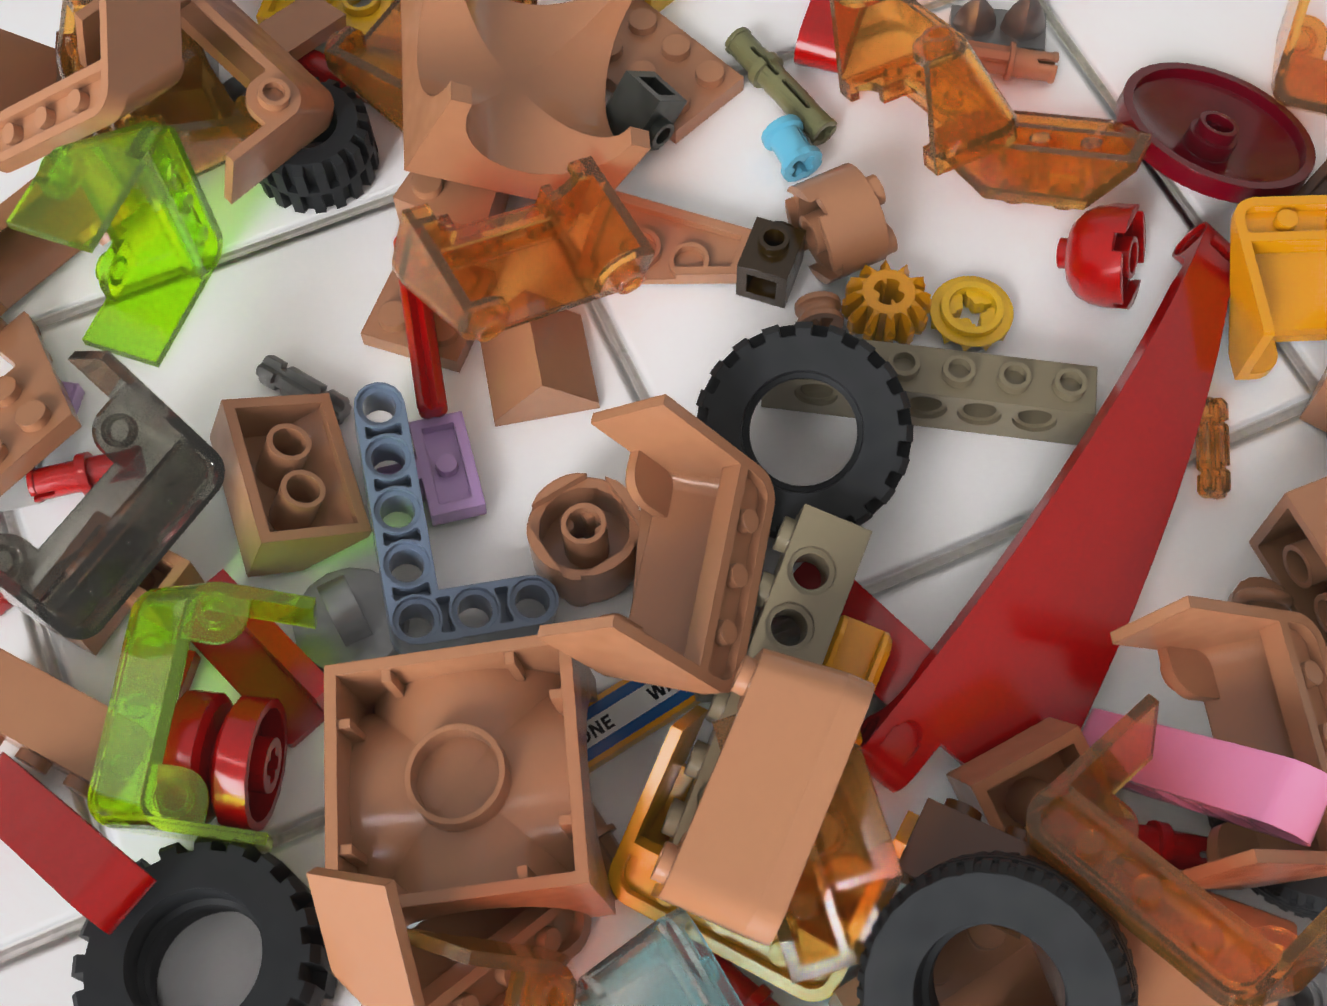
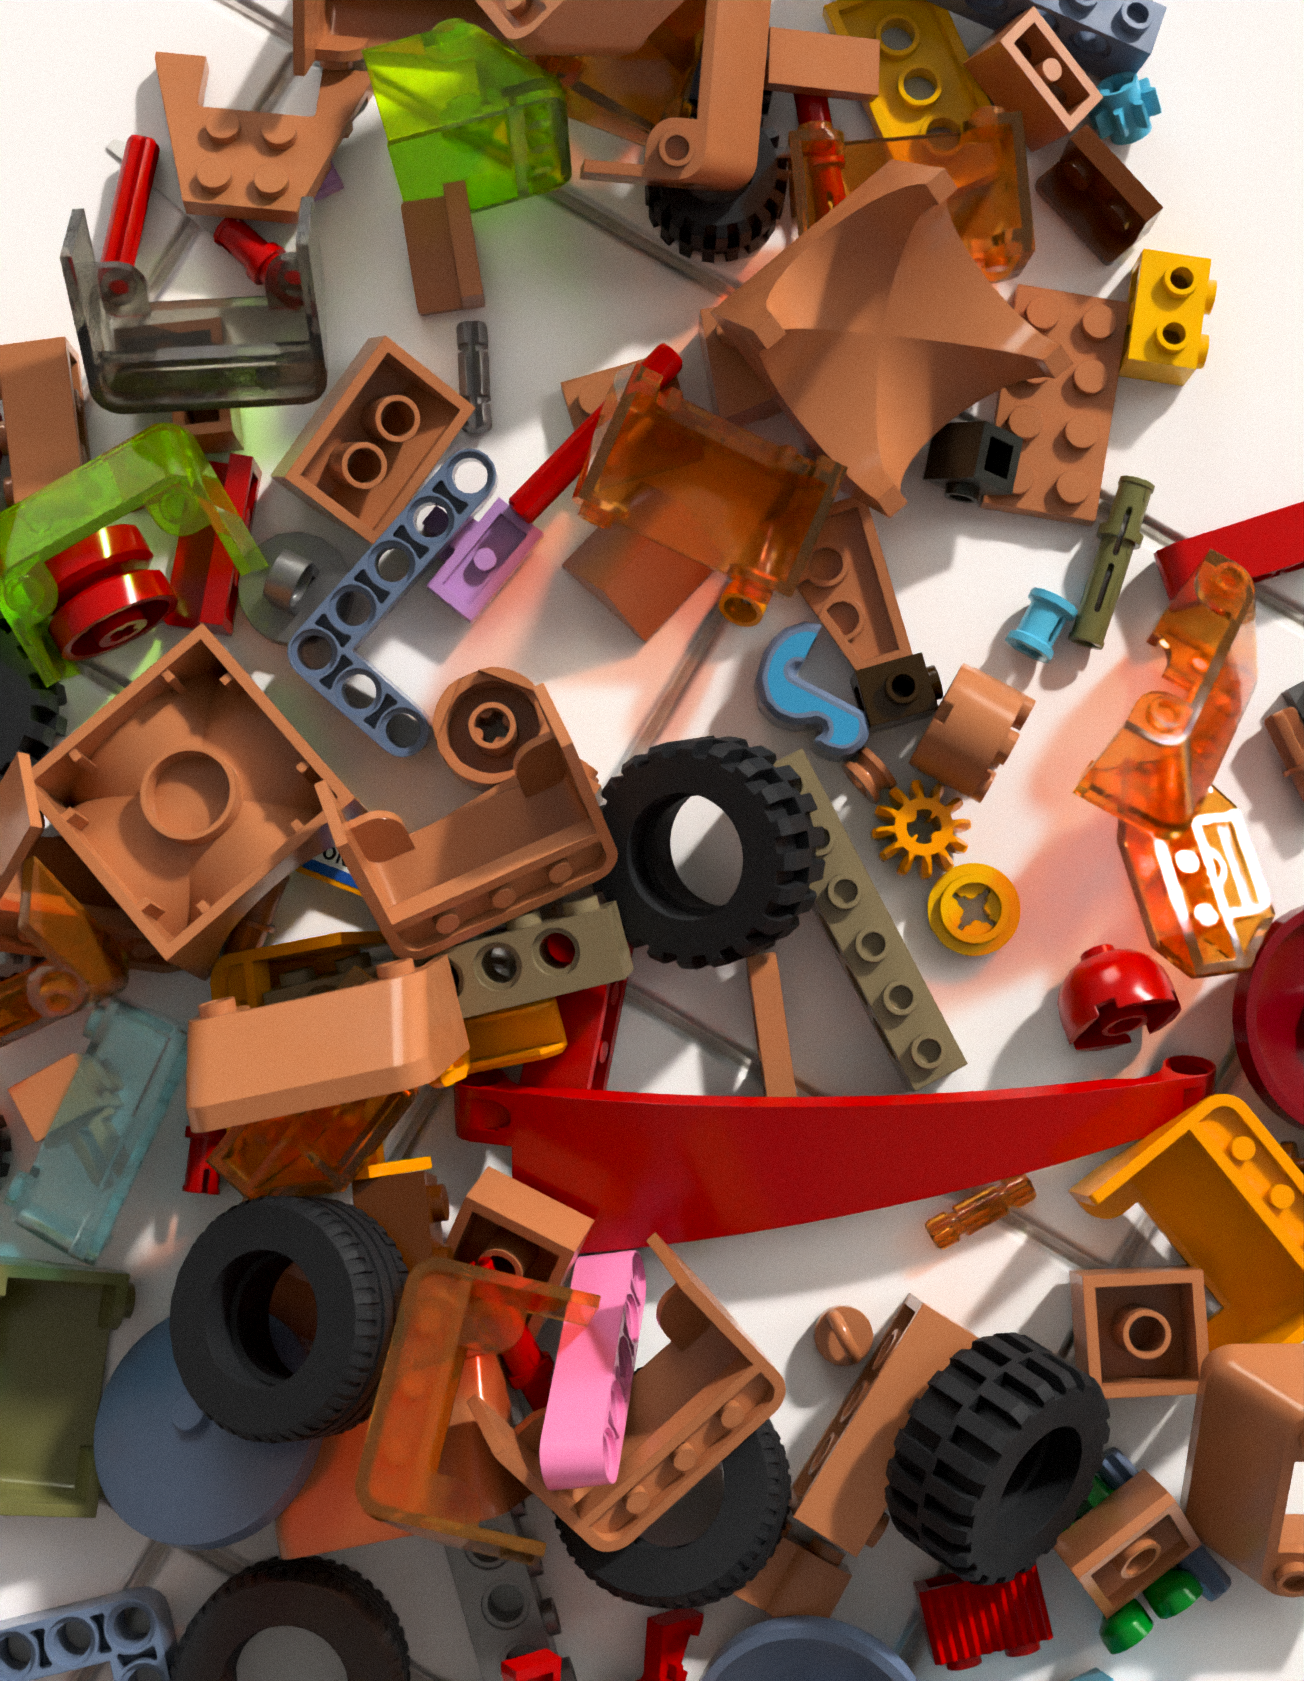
camera: 50 degrees right, 20 degrees up
(197, 344) = (443, 252): none -> nougat panel
(633, 311) = (738, 612): none -> light orange hinge
(713, 330) = (800, 706): none -> sand blue animal
(966, 496) = (770, 1025): none -> nougat beam

